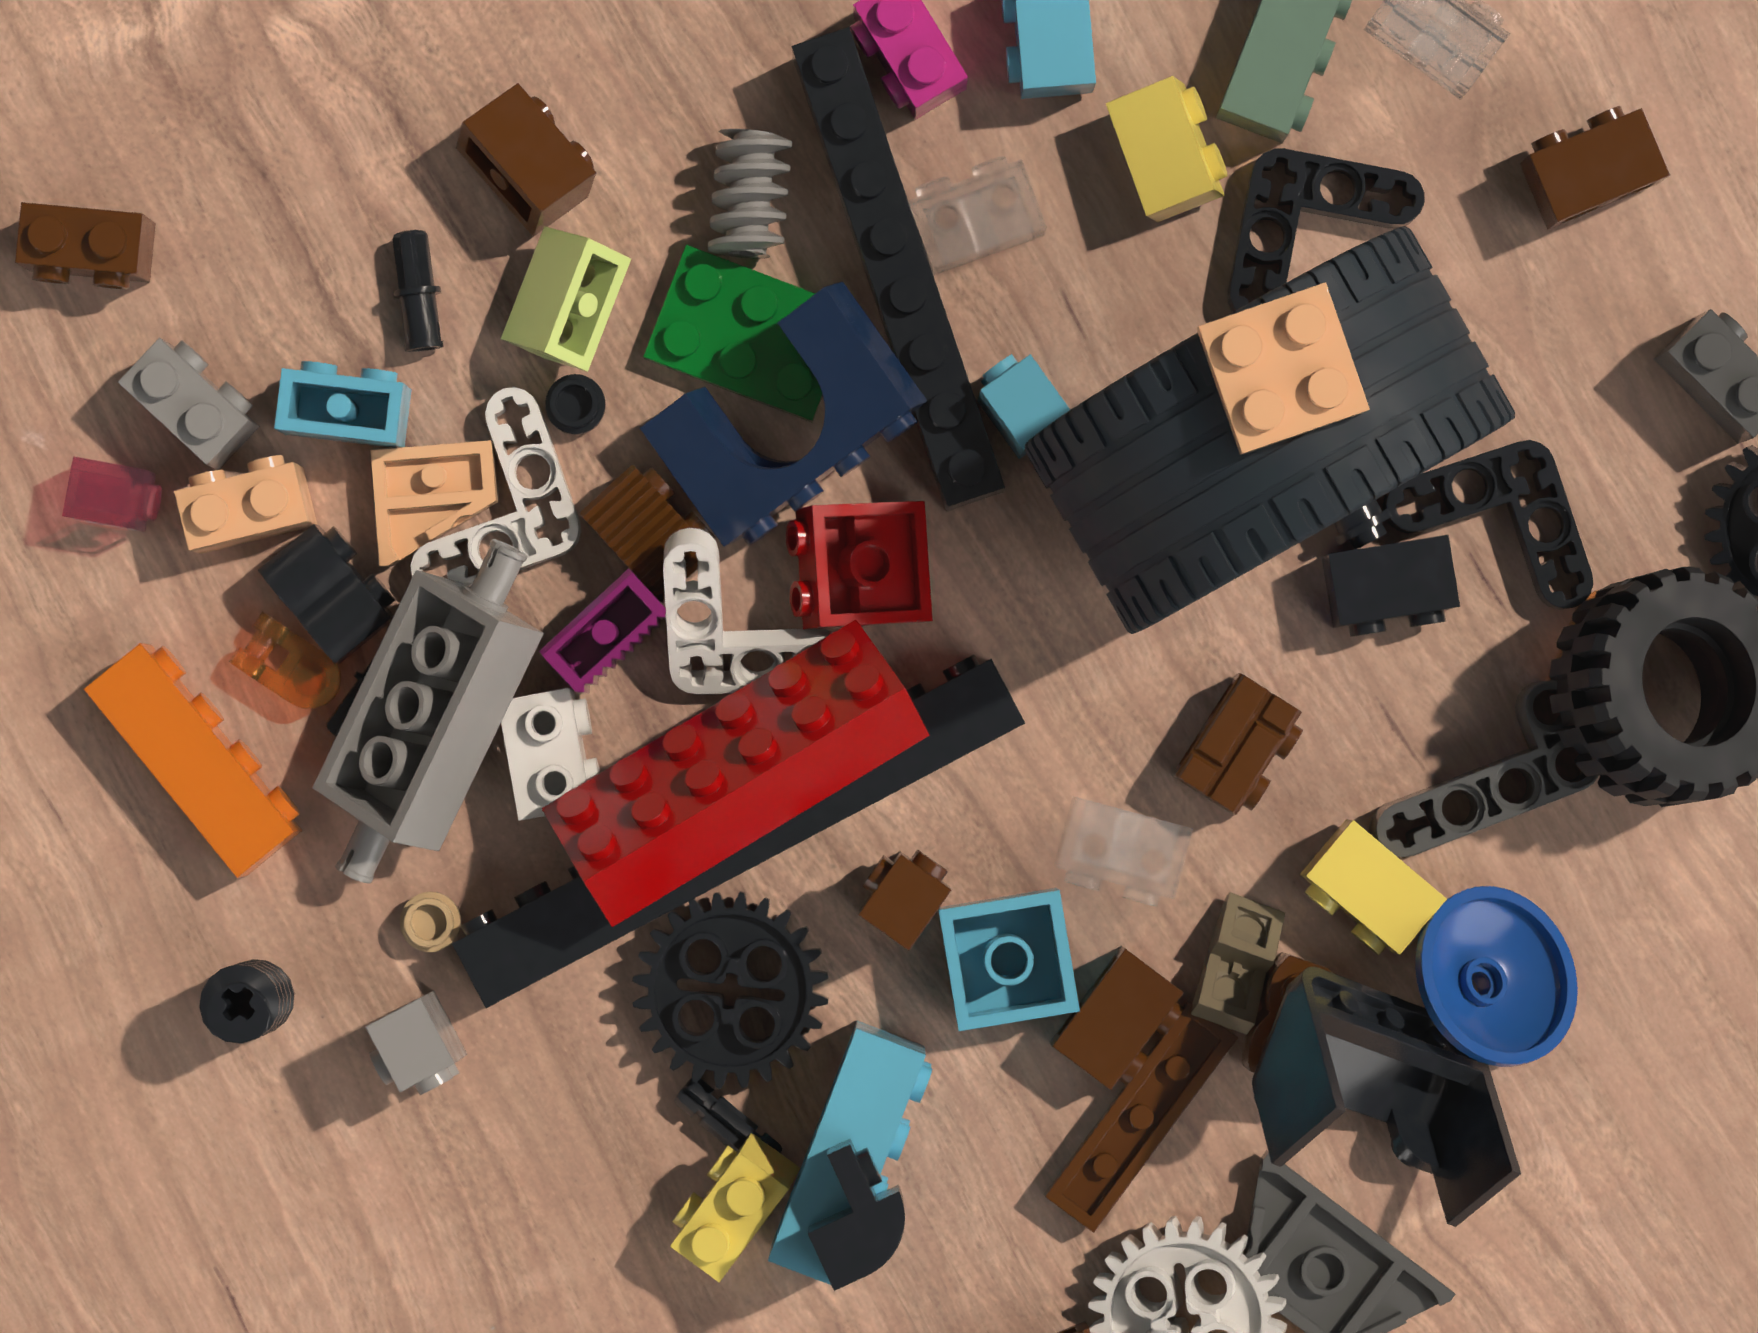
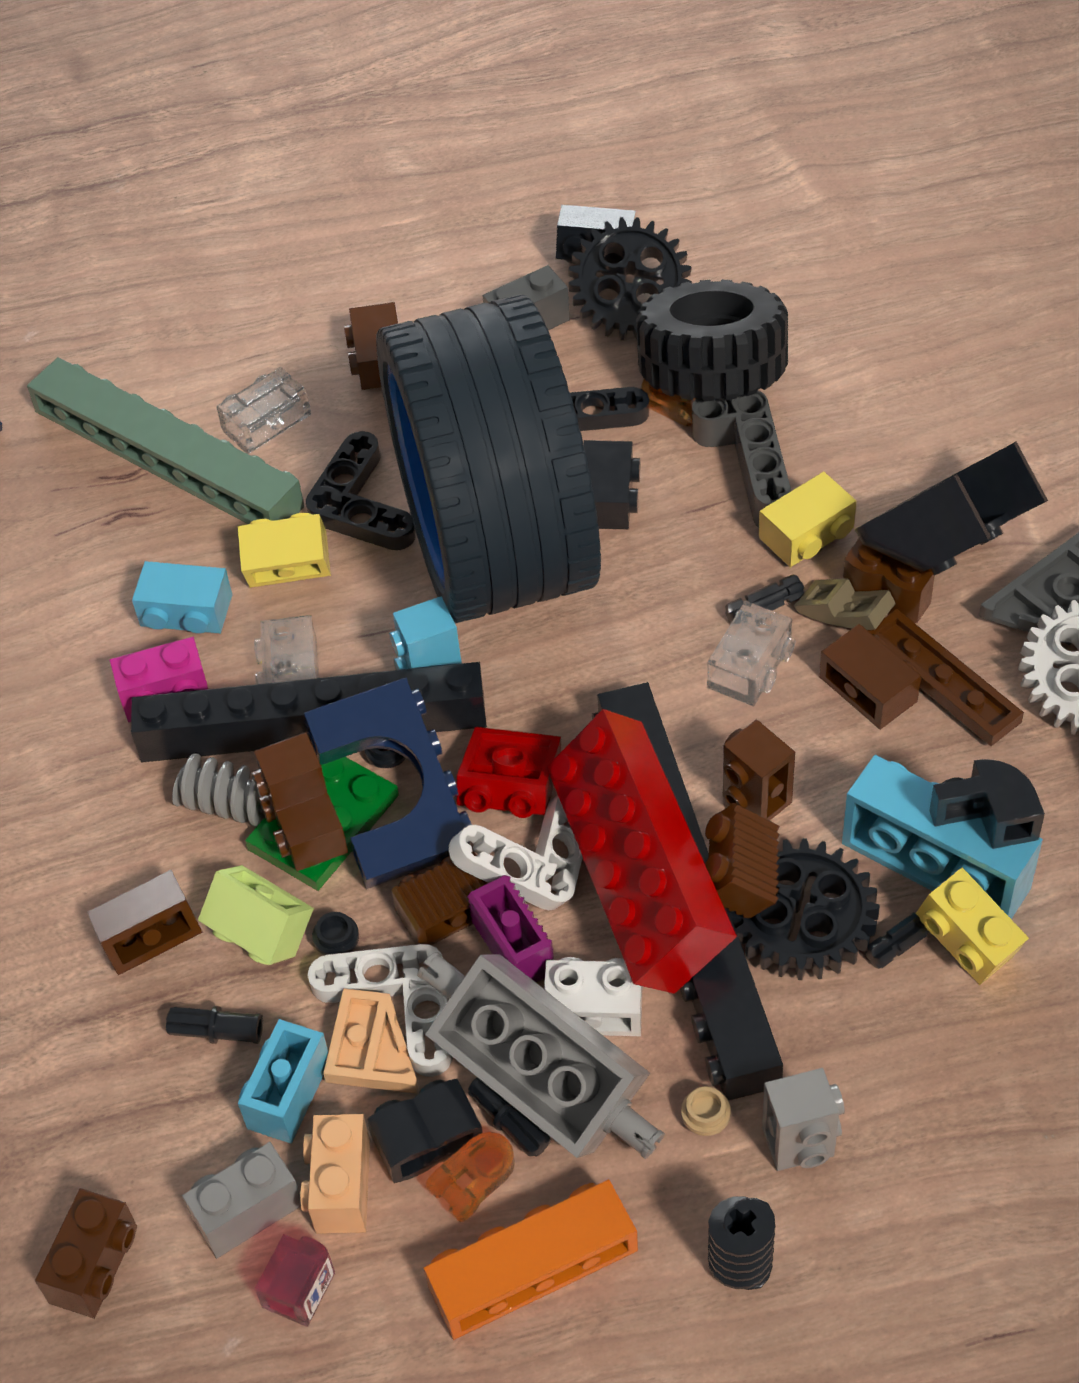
camera: 70 degrees left, 35 degrees down
(715, 317) = (297, 798): none -> reddish brown brick
(750, 908) = (743, 859): none -> reddish brown brick
(1008, 959) = (819, 721): medium azure brick -> none
(1230, 849) = (770, 596): none -> black axle
(1238, 745) = (693, 579): reddish brown brick -> none
(1283, 368) = (444, 348): light nougat plate -> none
(1519, 970) = (883, 463): blue dish -> none

